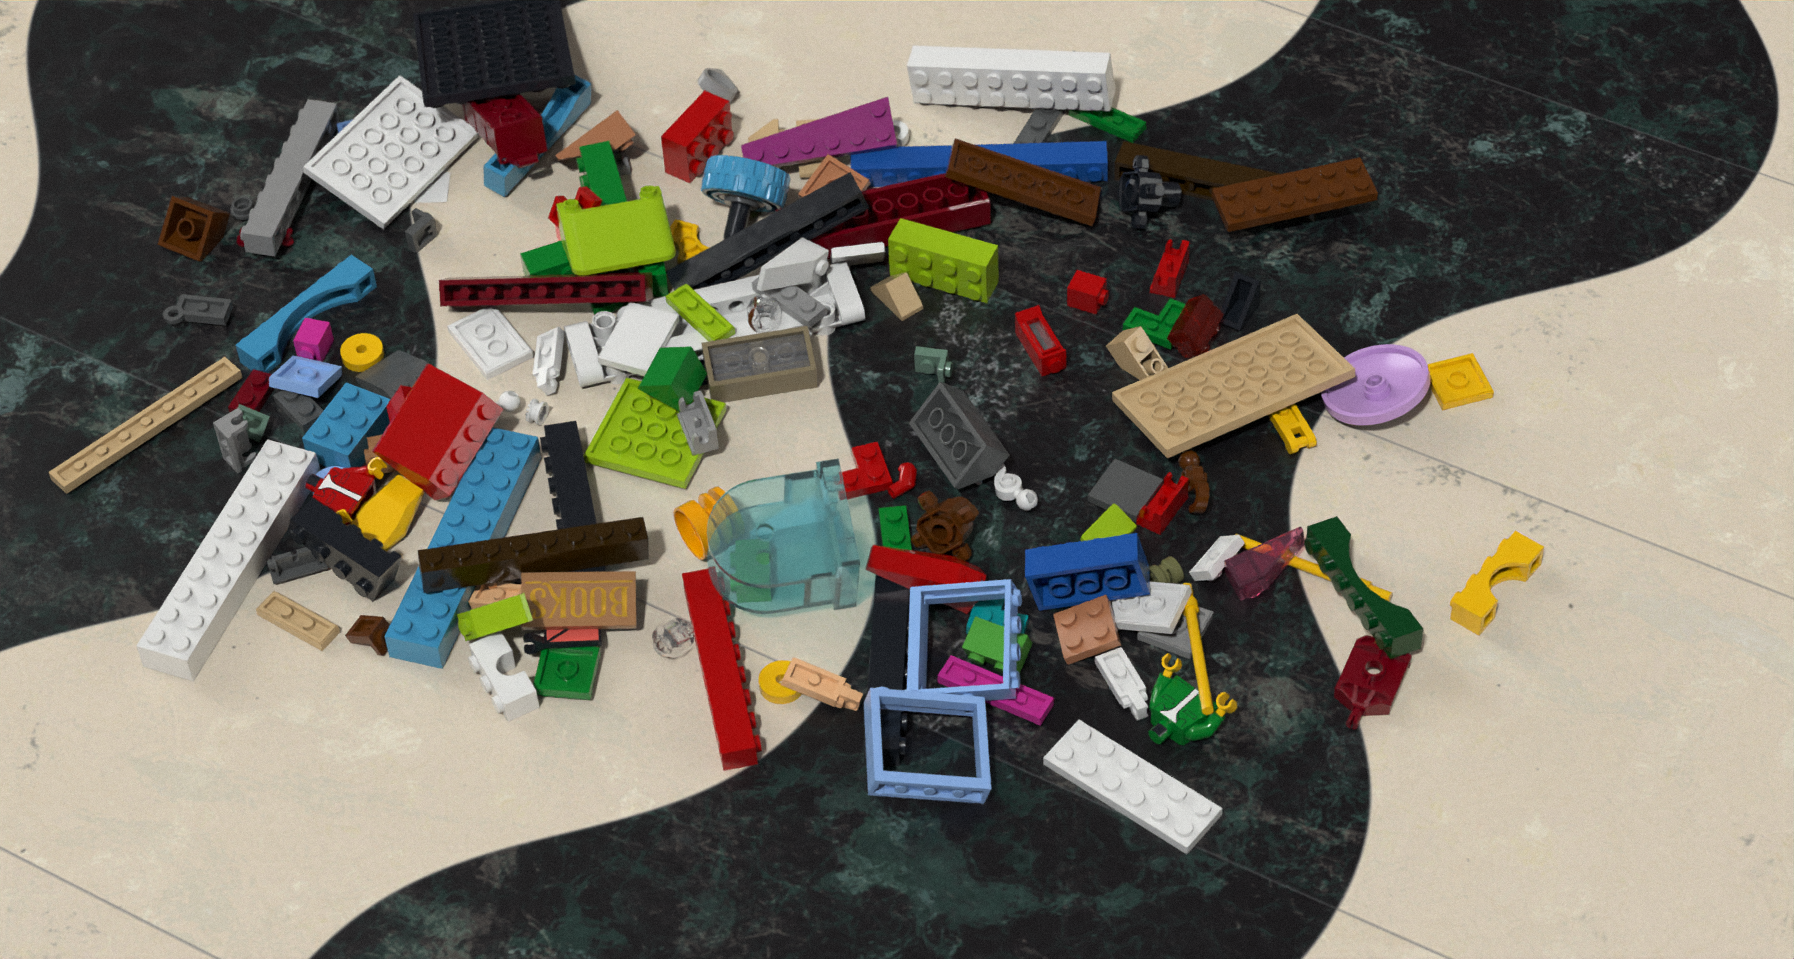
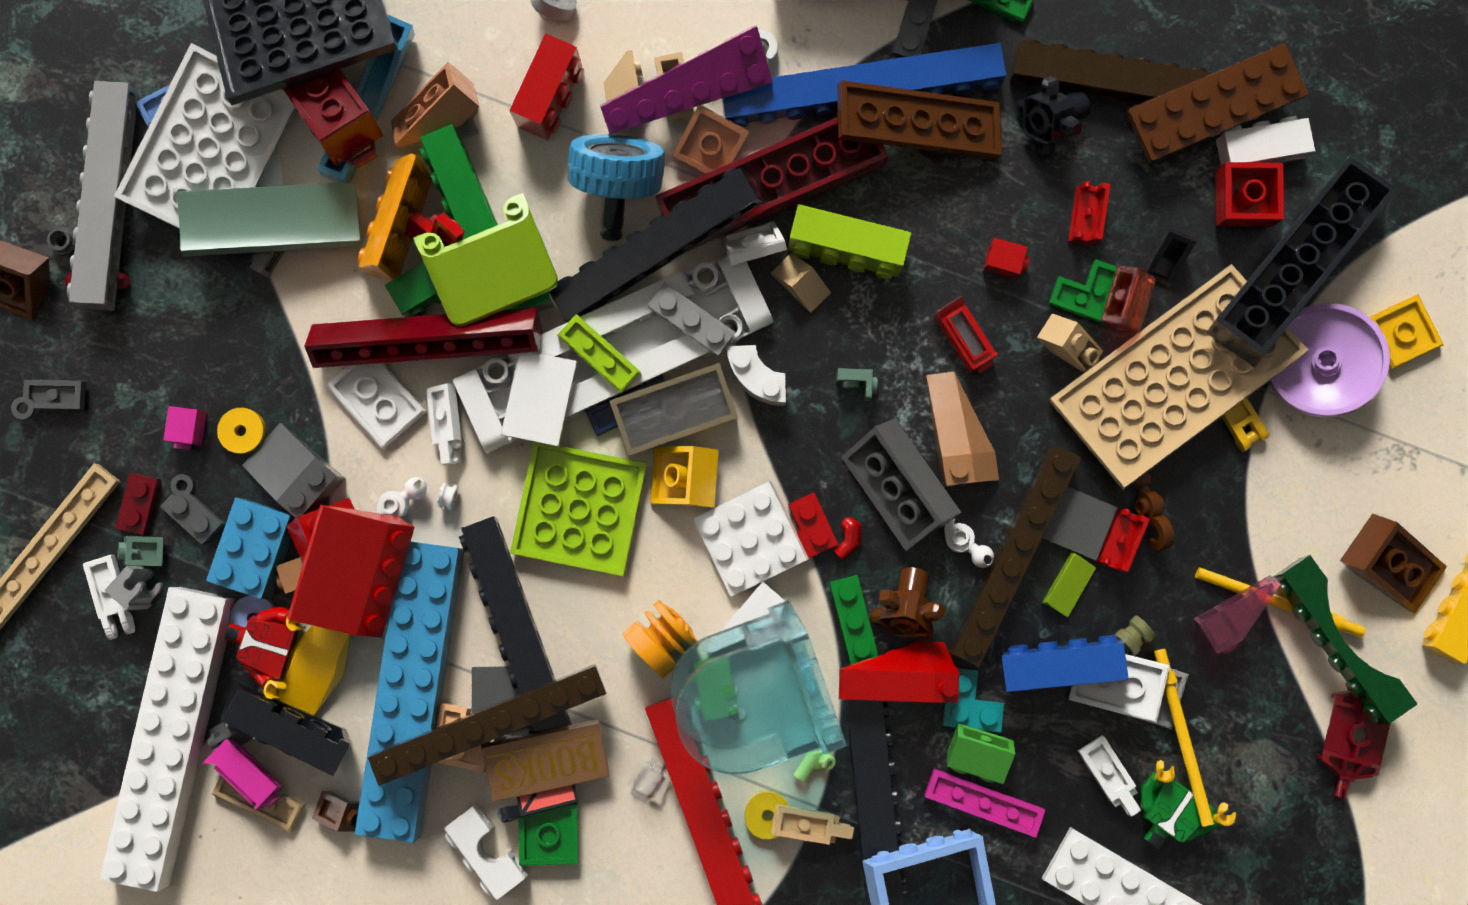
camera: 10 degrees left, 35 degrees up
(206, 454) = (99, 576): none -> white hinge
(293, 586) = (245, 774): none -> dark pink window
(305, 376) = (188, 480): light blue tile -> none
(342, 285) = (135, 439): dark azure arch -> none
(432, 197) = (268, 219): none -> sand green arch
(494, 617) = (461, 800): lime slope -> none
(530, 224) = (387, 242): none -> light orange slope
(673, 375) = (586, 449): green slope -> none
(686, 240) = (556, 224): yellow tile -> none
(698, 425) = (624, 507): light grey hinge -> none
(759, 416) = (684, 476): none -> yellow slope
(764, 313) = (670, 352): clear head -> none
(794, 266) = (695, 286): white slope -> none
(806, 448) = (751, 538): none -> white plate
(835, 644) = (813, 761): none -> yellowish green arm
(841, 352) = (755, 377): none -> white brick
(963, 592) = (951, 823): light blue window -> none
(1023, 421) = (960, 440): none -> medium nougat wedge
(1057, 500) = (1014, 555): none -> dark brown brick
(1087, 629) = (1066, 717): nougat plate -> none
(1212, 562) = (1185, 607): white plate -> none
(1318, 263) = (1249, 194): none -> red brick
(1340, 235) = (1267, 142): none -> white brick
(1354, 304) = (1301, 261): none -> black brick
(1426, 544) = (1393, 562): none -> reddish brown slope

